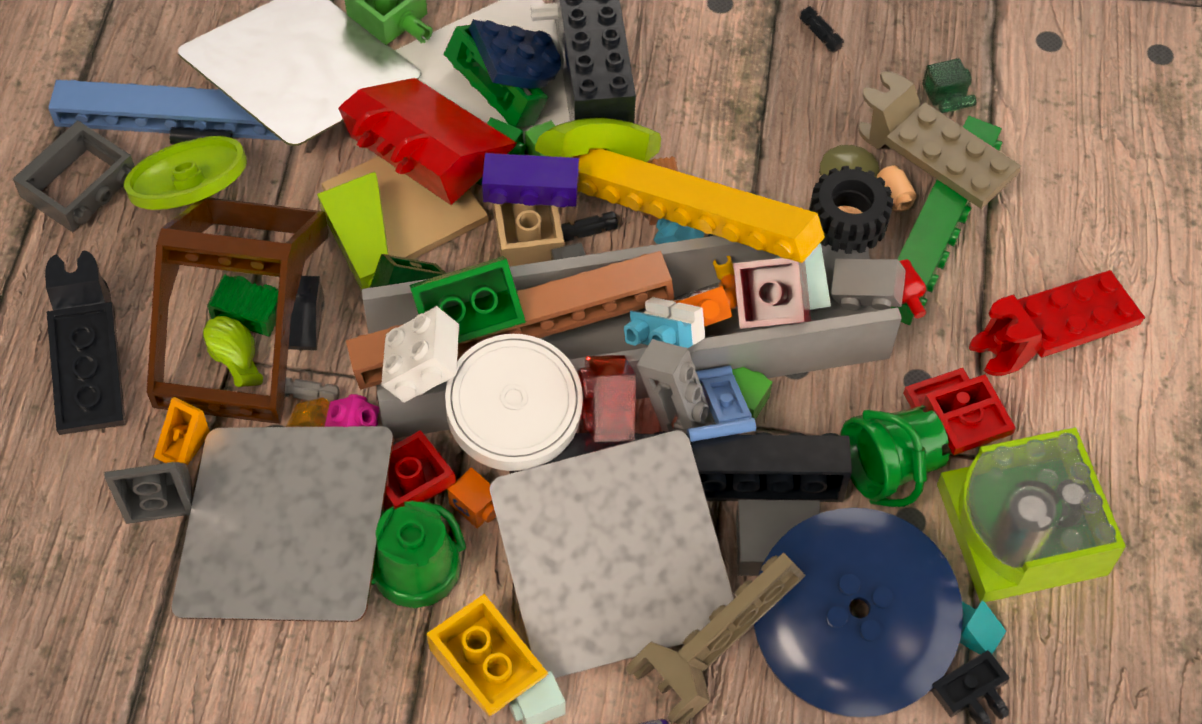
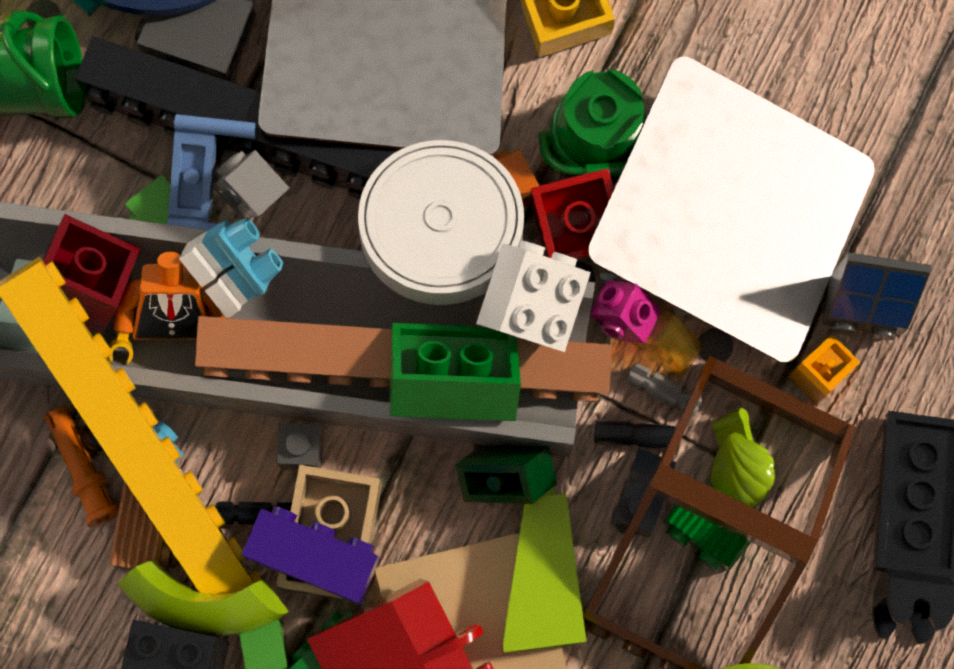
camera: 160 degrees left, 20 degrees up
(316, 354) = (632, 434): none -> black piece
(608, 398) = (329, 196): clear red brick -> none

